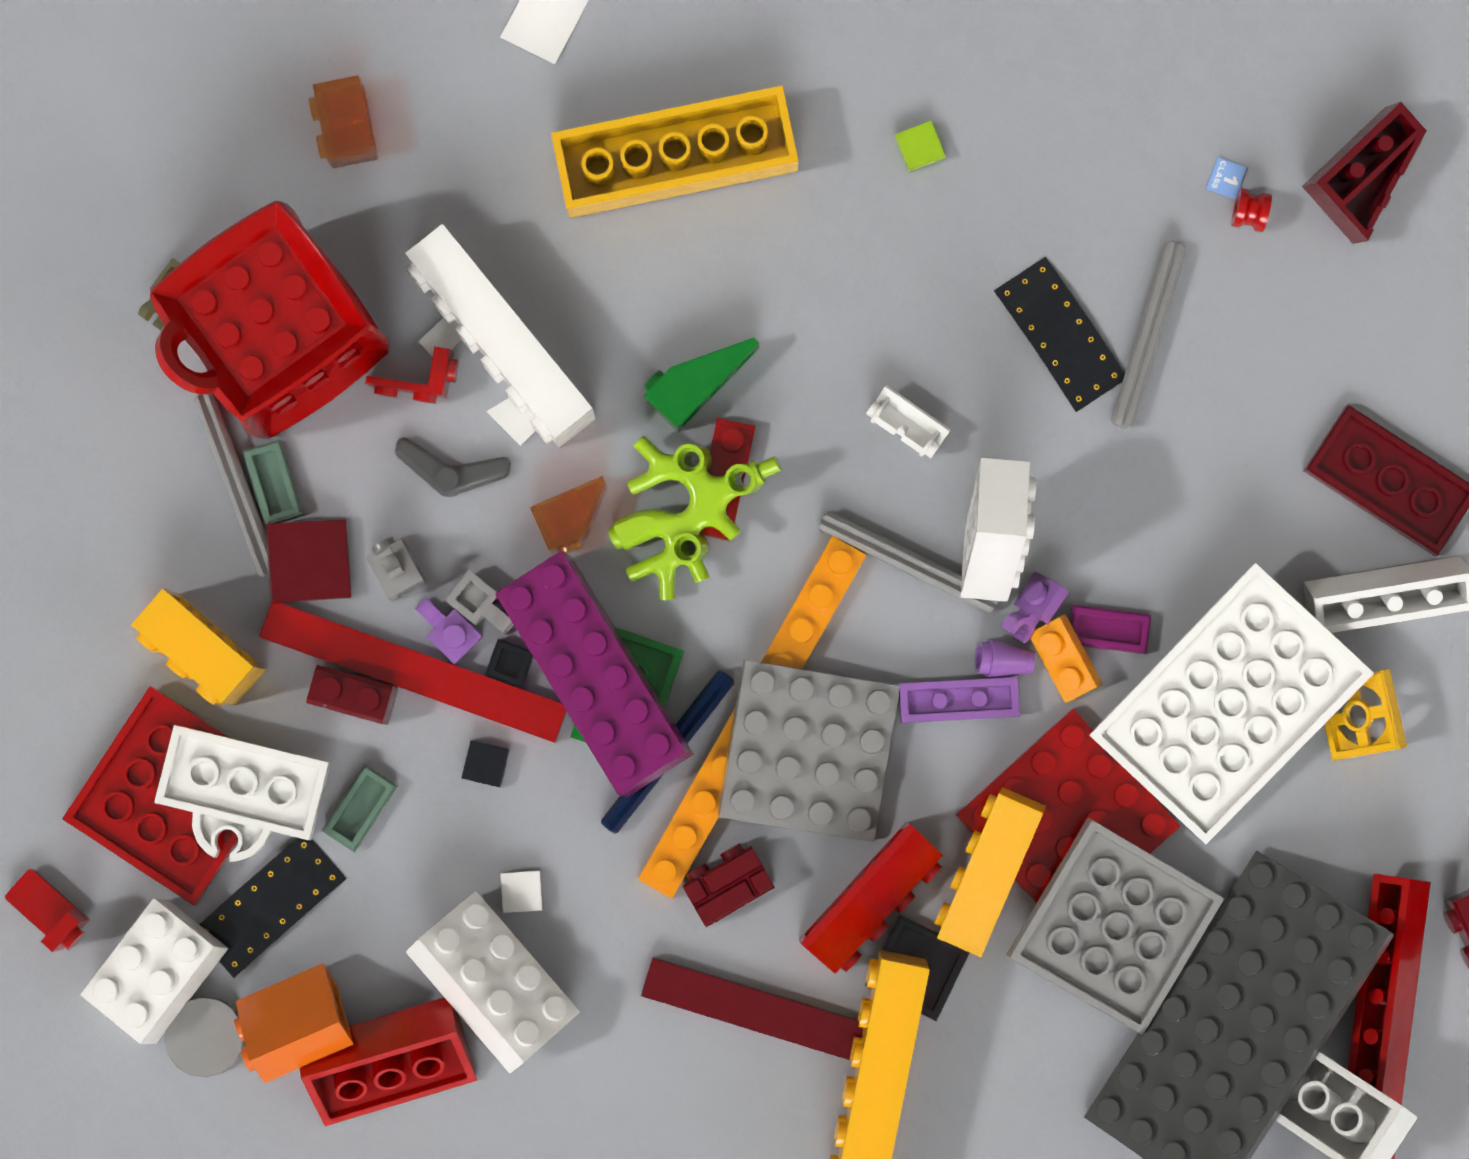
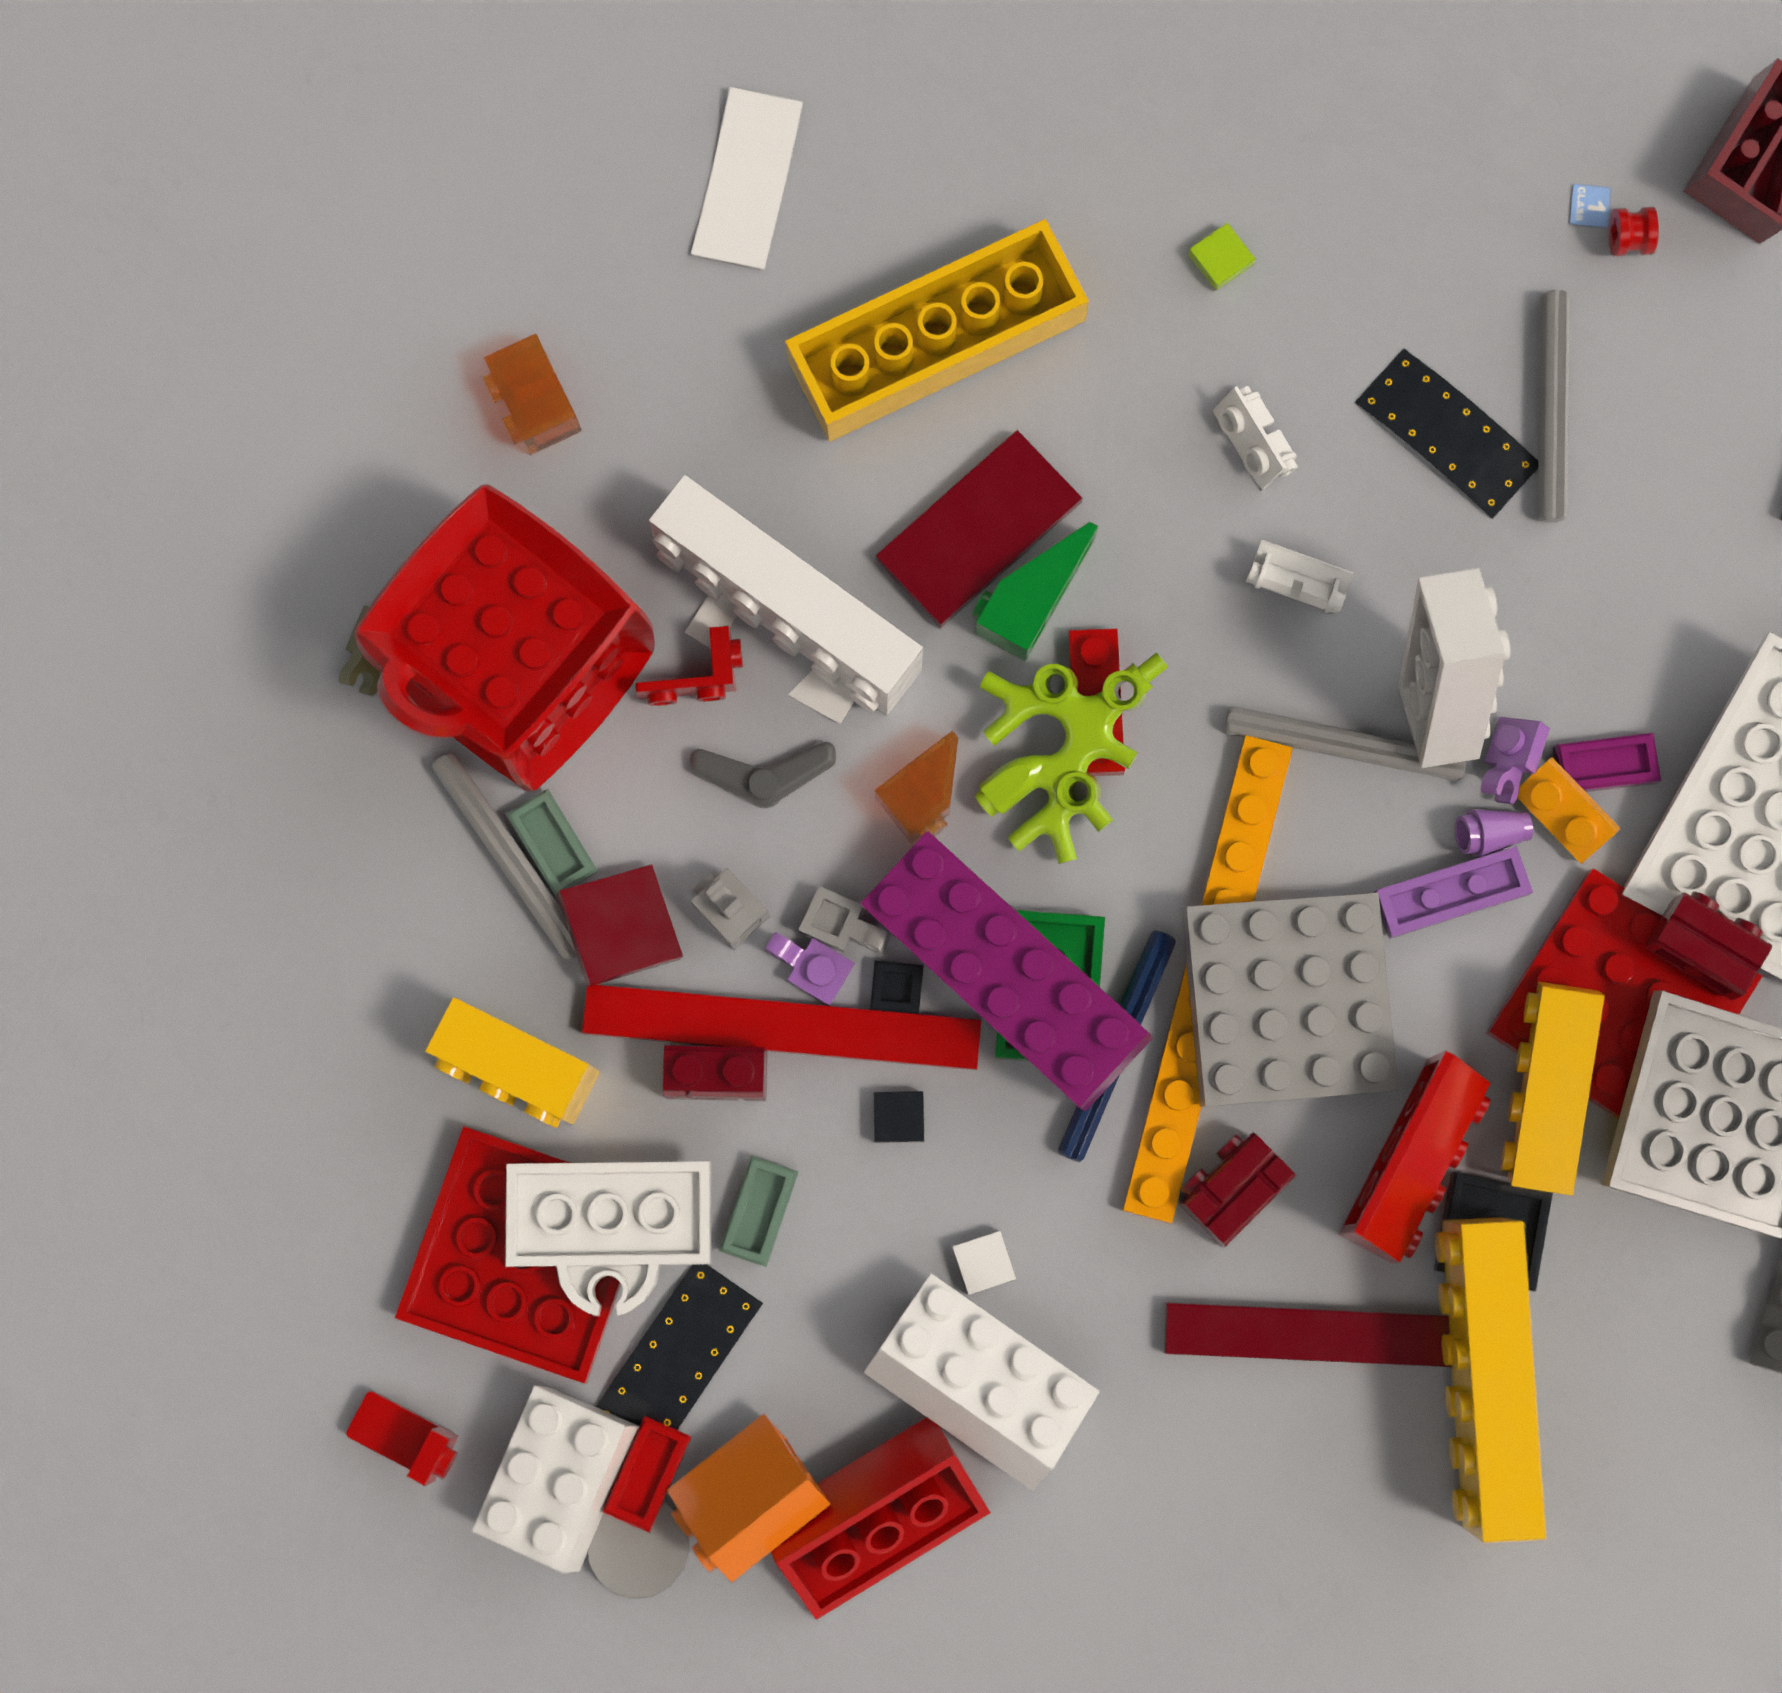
camera: 15 degrees left, 5 degrees down
(224, 985) = (647, 1474): none -> red tile
(669, 318) = (978, 529): none -> dark red tile
(900, 282) = (1243, 421): none -> white hinge
(1141, 792) = (1709, 944): none -> dark red brick

